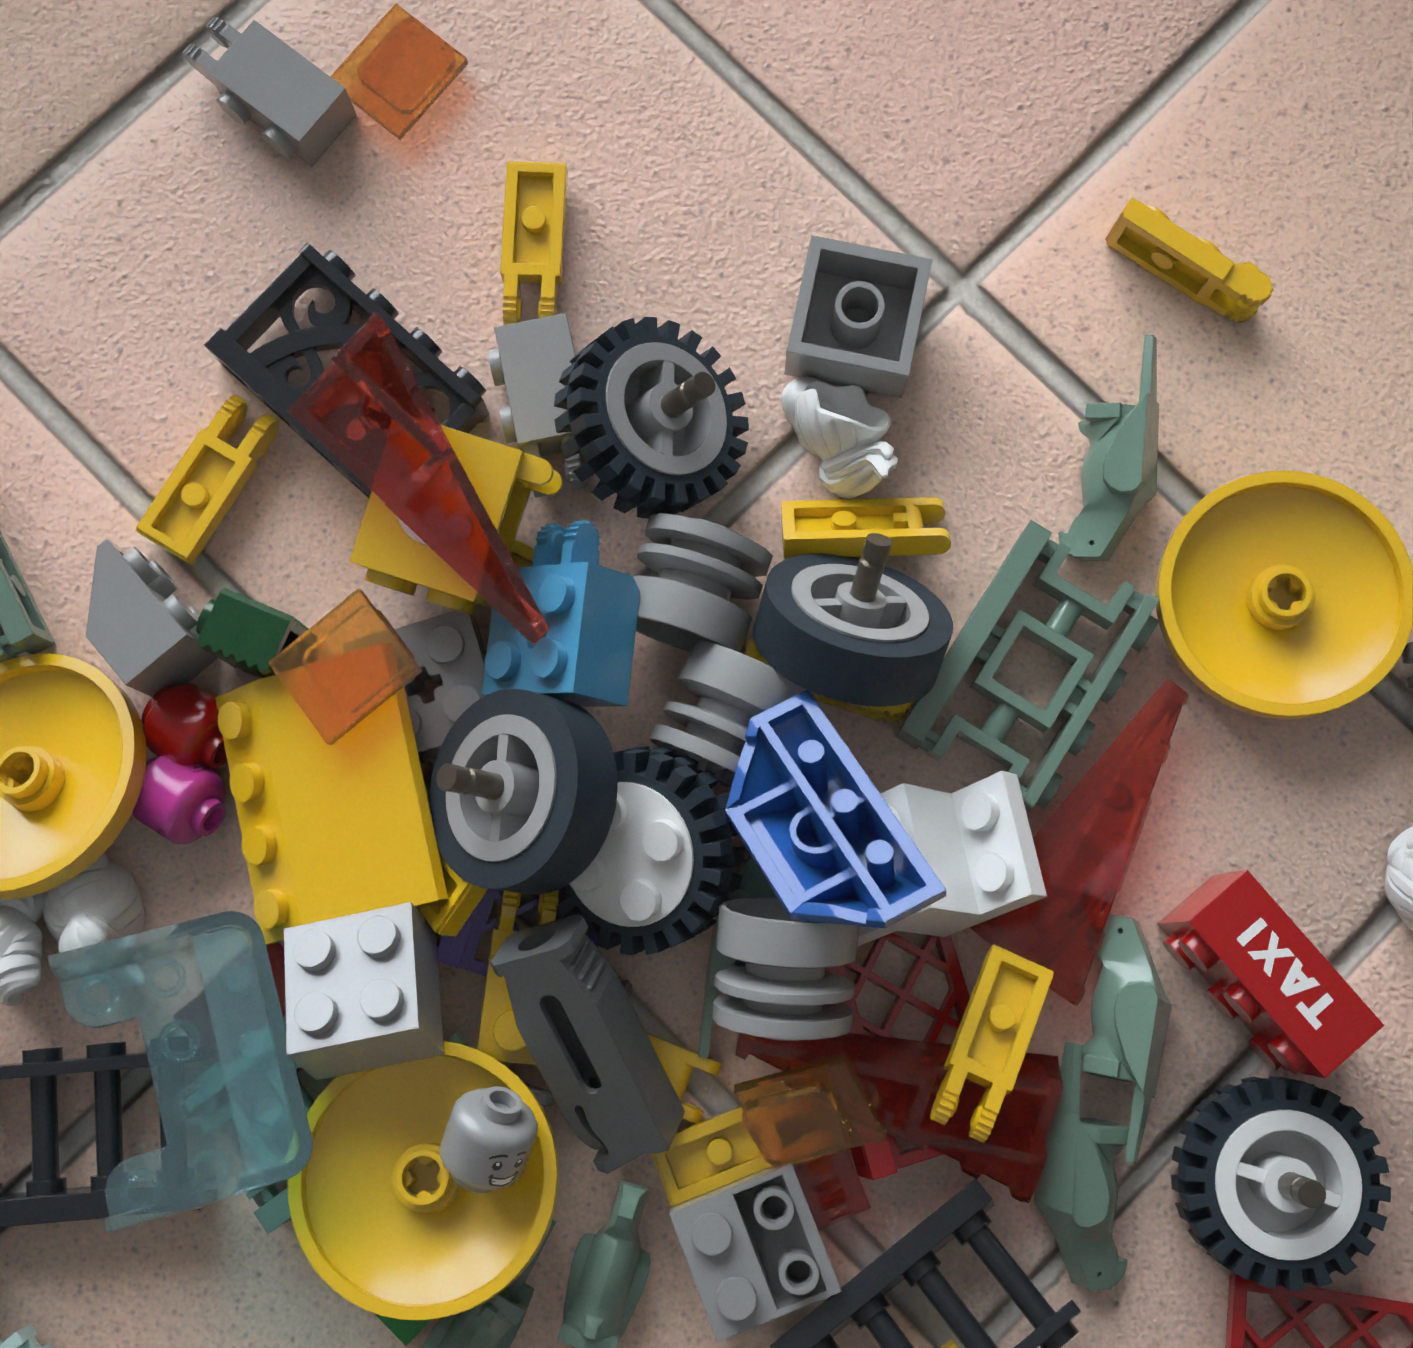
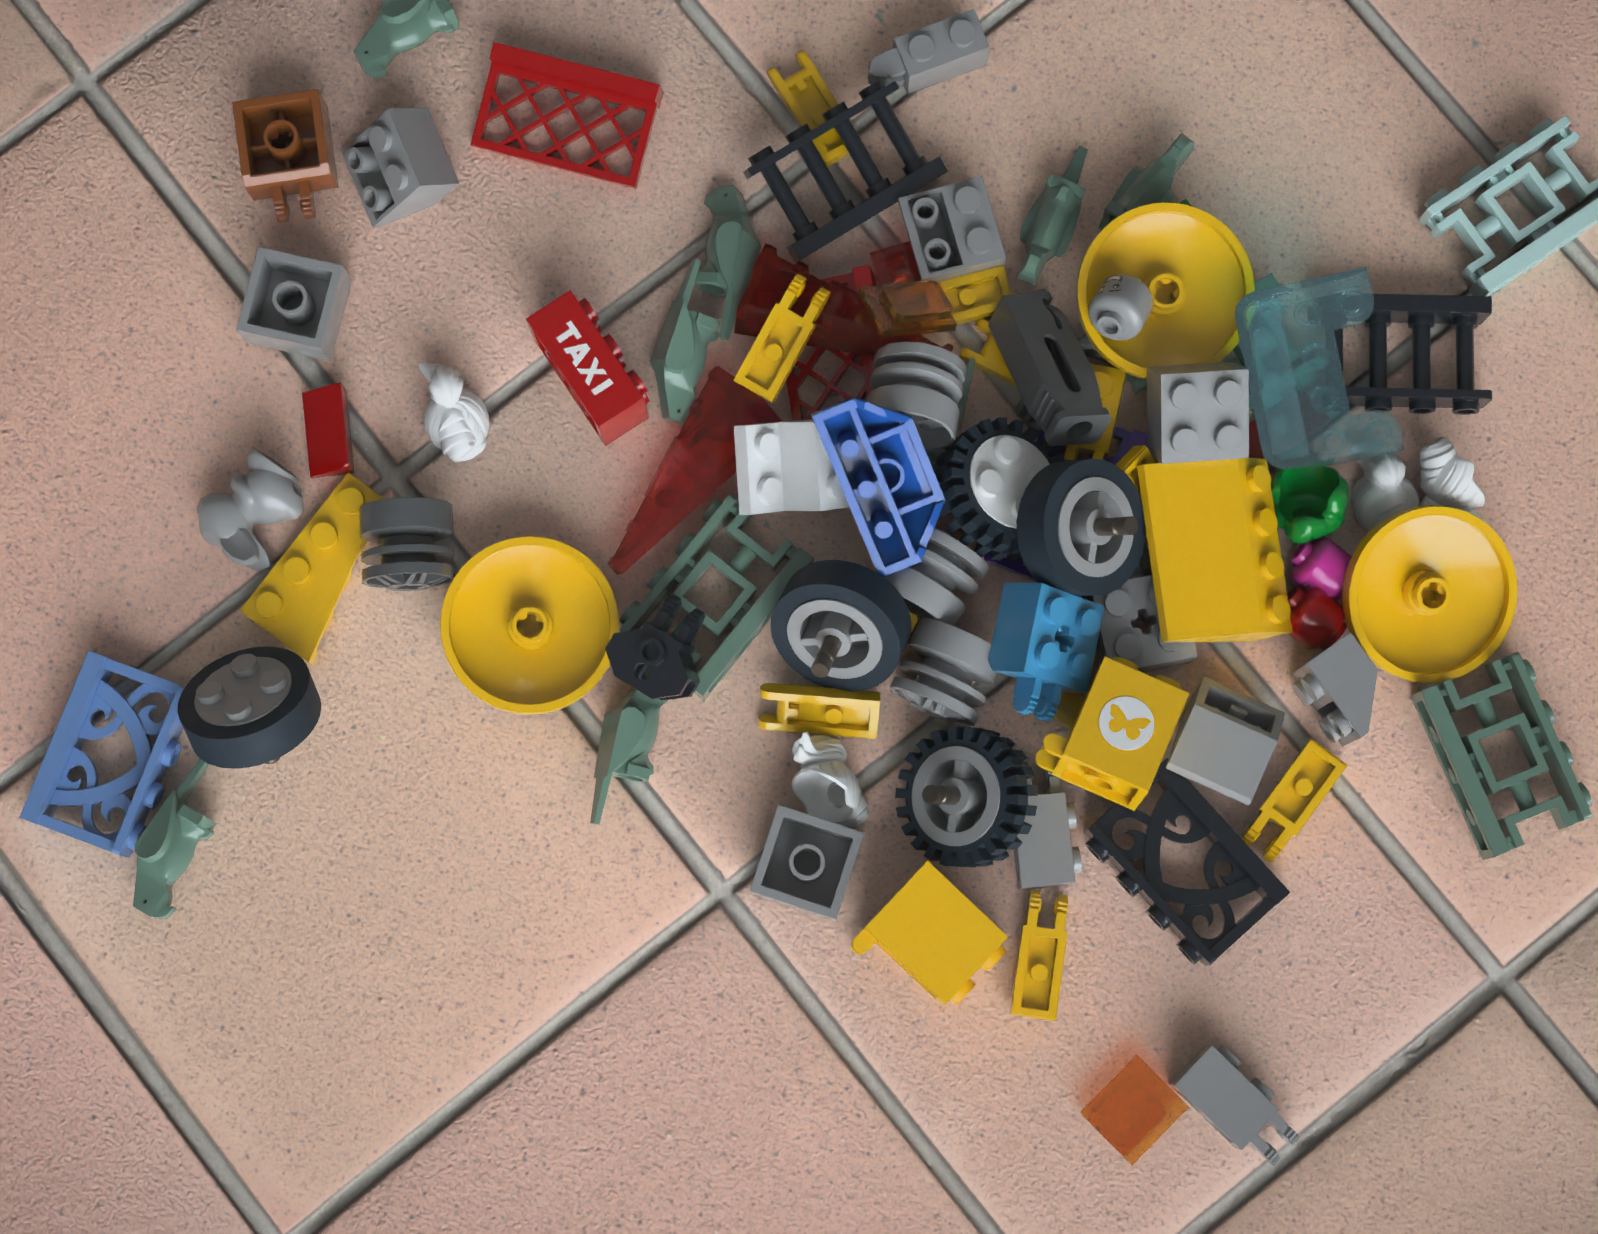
camera: 175 degrees left, 0 degrees up
(196, 879) = (1309, 502): none -> green hair
(246, 632) = (1261, 669): dark green brick -> none
(296, 533) = (1225, 740): none -> light grey slope
(345, 666) = (1196, 625): clear orange piece -> none
(387, 434) = (1159, 769): clear red wedge -> none
(679, 235) = (934, 935): none -> yellow container
(1103, 560) = (661, 651): none -> black hinge
(1189, 262) = (552, 884): yellow hinge -> none
(1280, 1182) = (599, 238): wheel -> none

